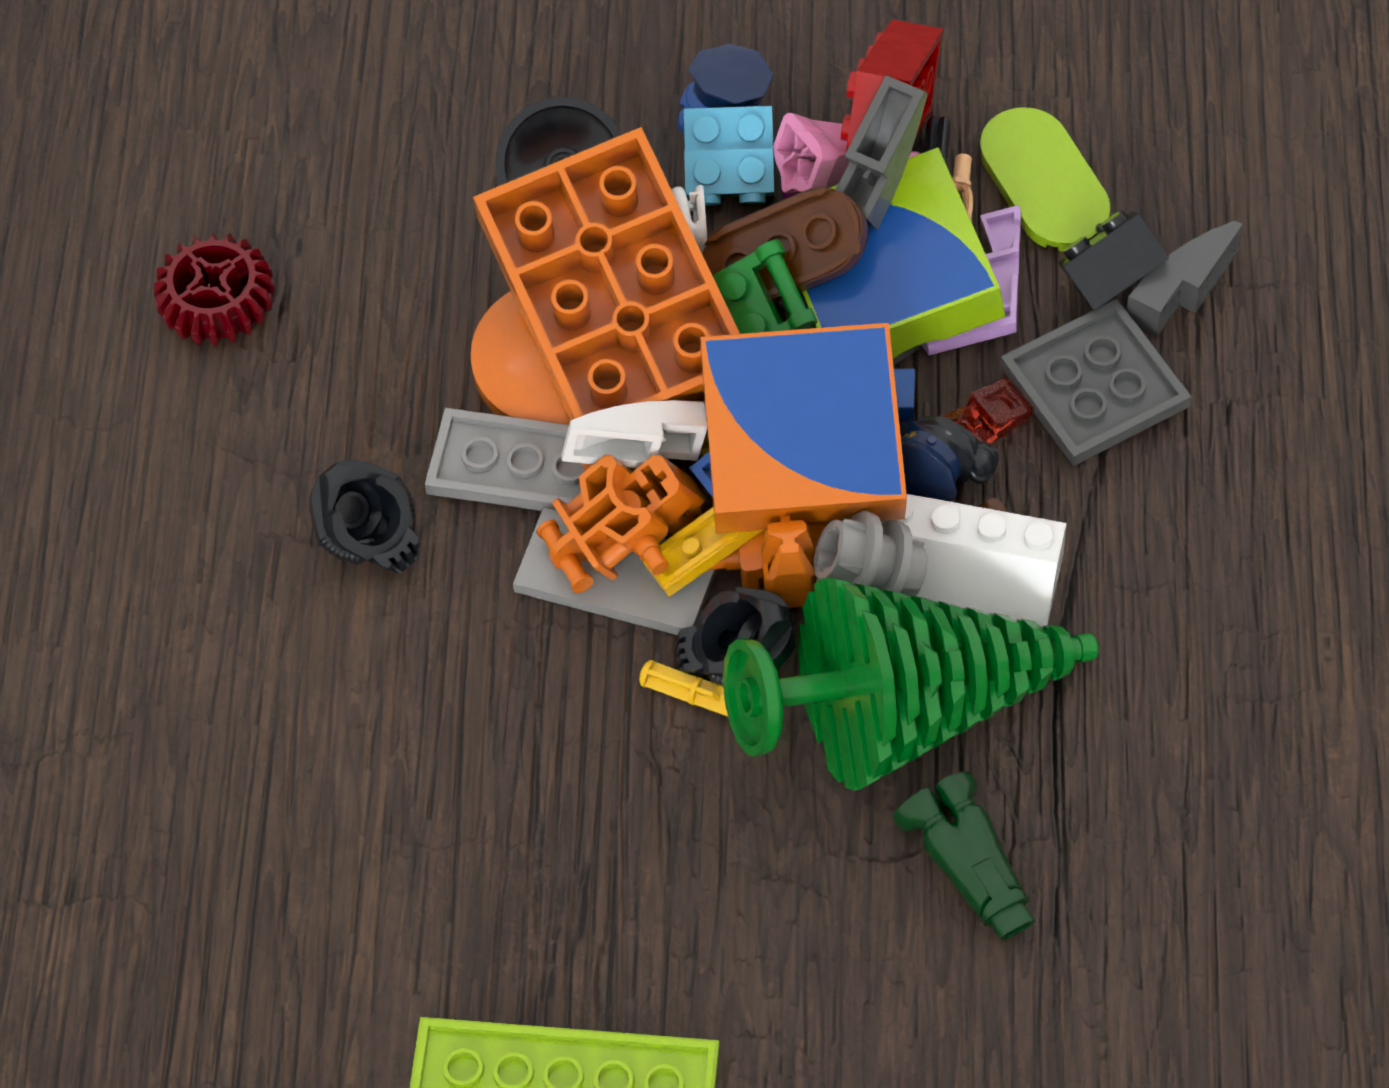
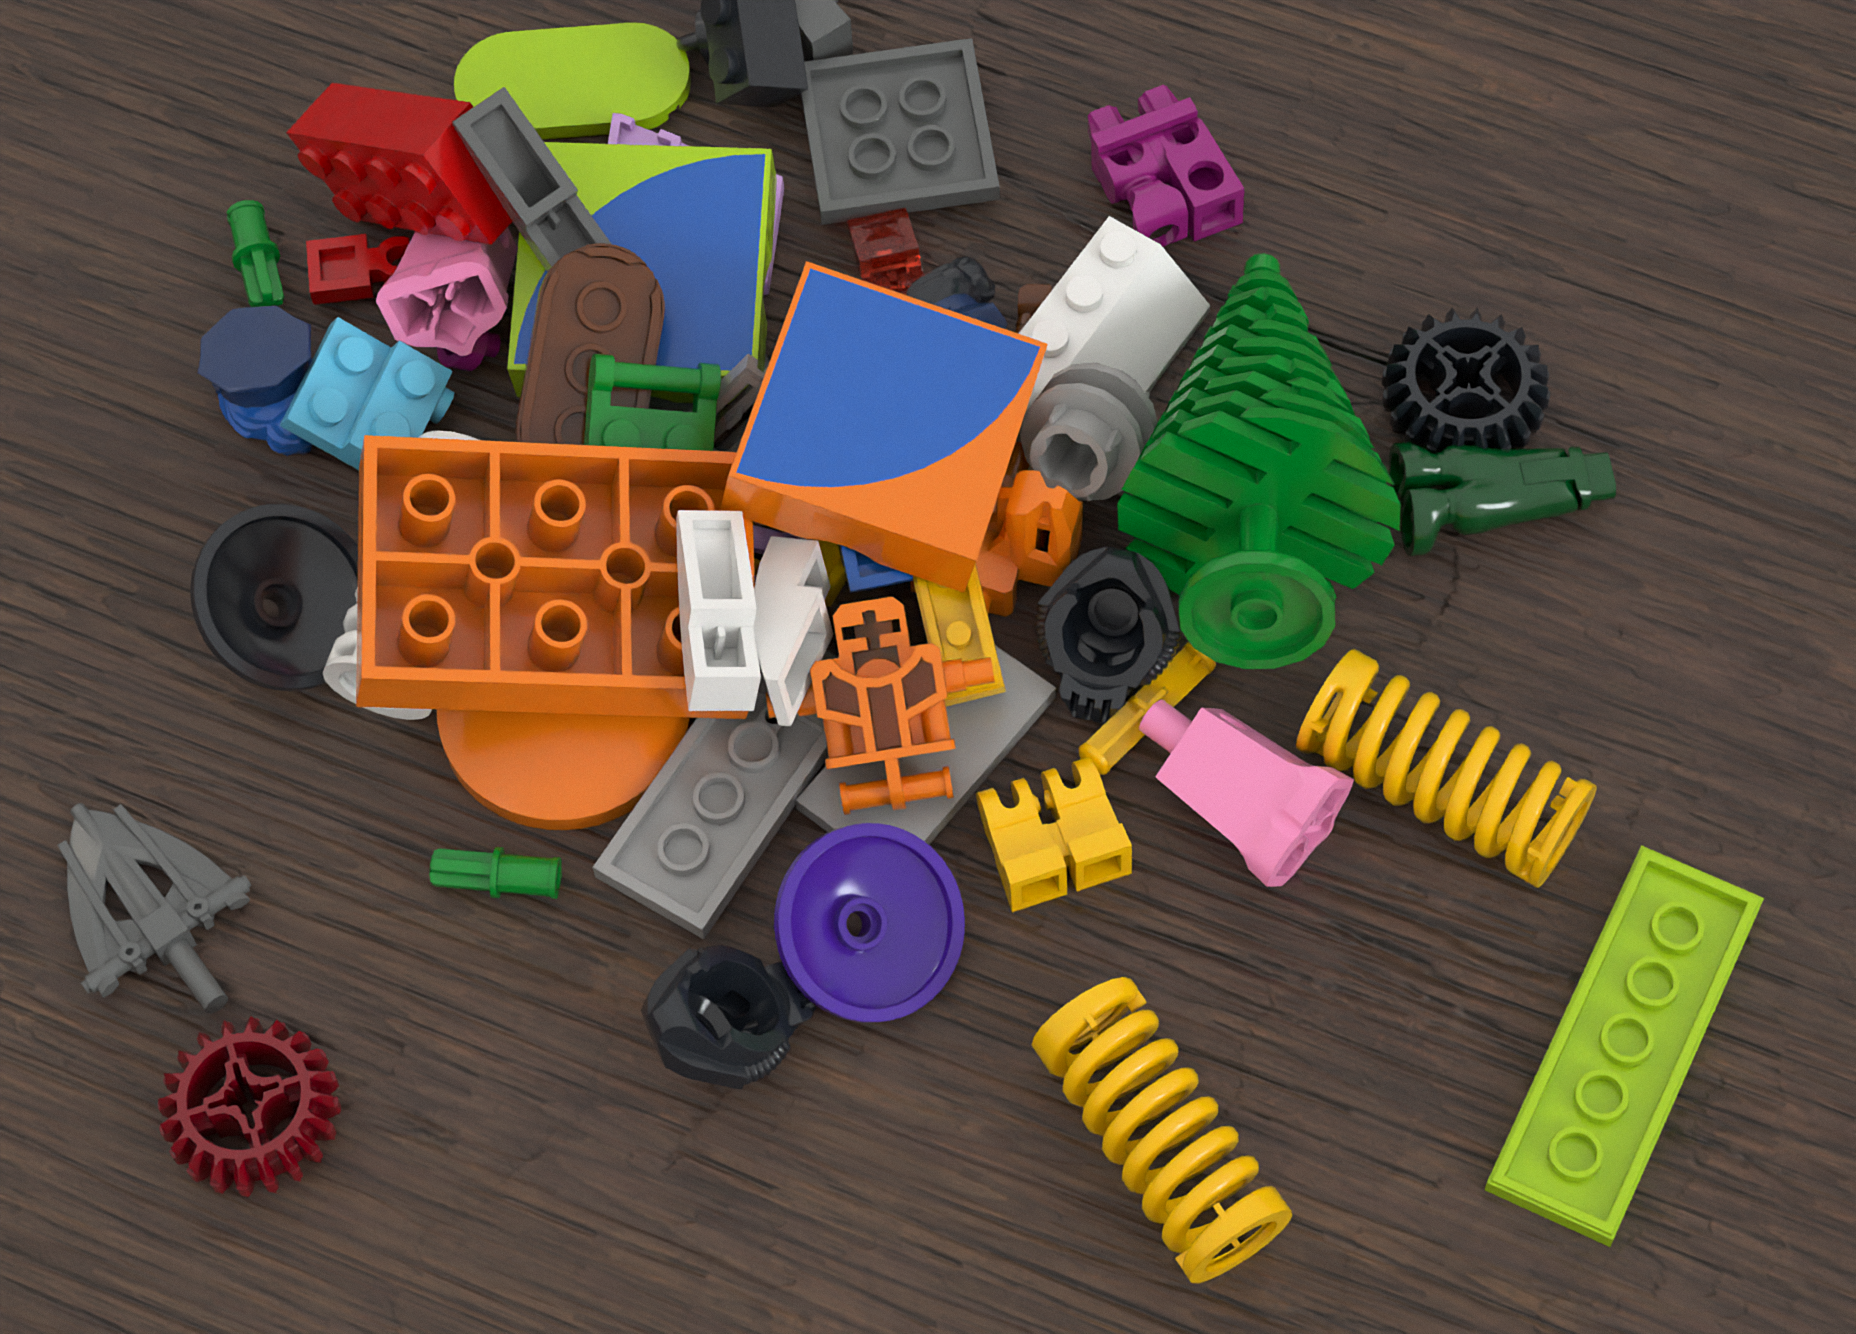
camera: 70 degrees left, 5 degrees up
(317, 199) = (110, 850): none -> dark grey bar
(426, 361) = (496, 872): none -> green axle
(429, 568) = (907, 917): none -> dark purple dish
(432, 746) = (1093, 1018): none -> yellow piece
(559, 667) = (1036, 856): none -> yellow legs
(619, 377) = (716, 611): none -> white slope
(651, 767) = (1247, 787): none -> bright pink piece
(691, 942) = (1329, 735): none -> yellow piece
(818, 55) = (255, 254): none -> green axle
(827, 101) = (348, 267): none -> red plate
(1075, 828) = (1461, 357): none -> black gear
(1154, 551) = (1161, 148): none -> magenta hips

